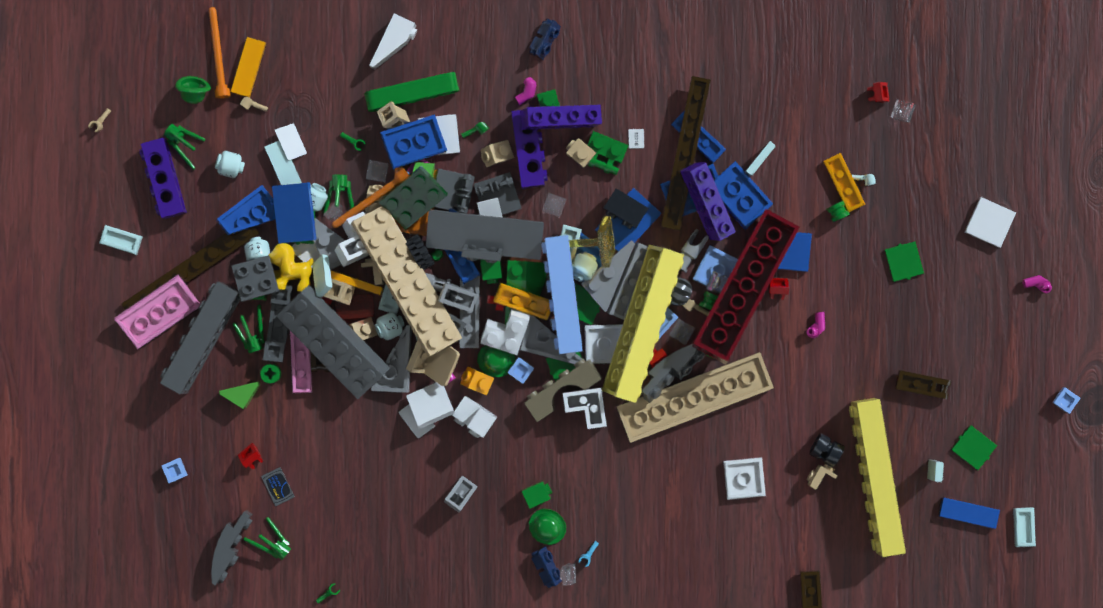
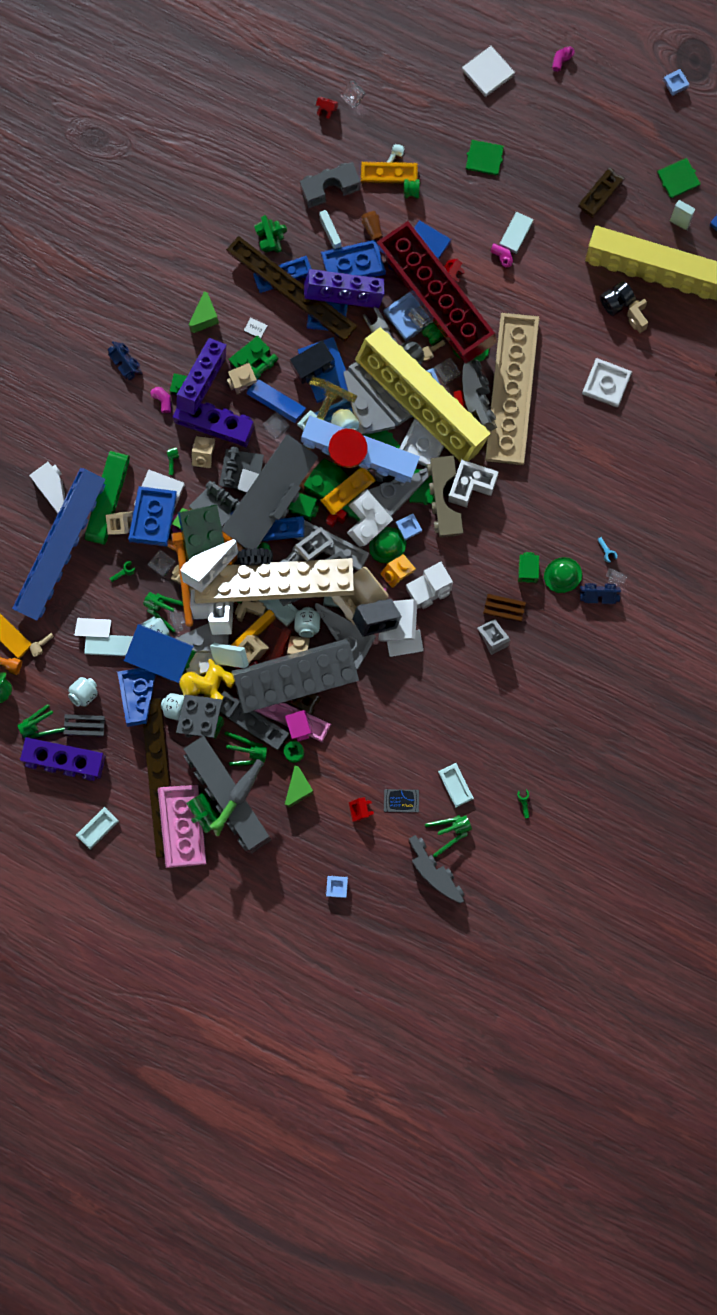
camera: 55 degrees left, 10 degrees down
(176, 325) = (203, 811): none -> green hips
(195, 184) = (86, 725): none -> dark grey tile
(199, 350) = (237, 796): none -> dark grey piece
(293, 367) = (299, 725): none -> dark pink brick
(314, 526) = (455, 785): none -> light aqua tile
(345, 74) = (59, 543): none -> blue brick
(384, 215) = (207, 565): none -> white slope
(420, 386) = (376, 617): none -> black brick
(495, 505) = (504, 600): none -> reddish brown tile
(555, 285) = (347, 448): none -> red tile
(576, 193) = (276, 401): none -> blue tile
(623, 87) = (204, 315): none -> bright green slope
(731, 108) = (274, 233): none -> green hips
(785, 193) = (372, 224): none -> dark orange cone
(818, 144) = (343, 176): none -> dark grey arch
(845, 326) = (516, 232): none -> light aqua tile

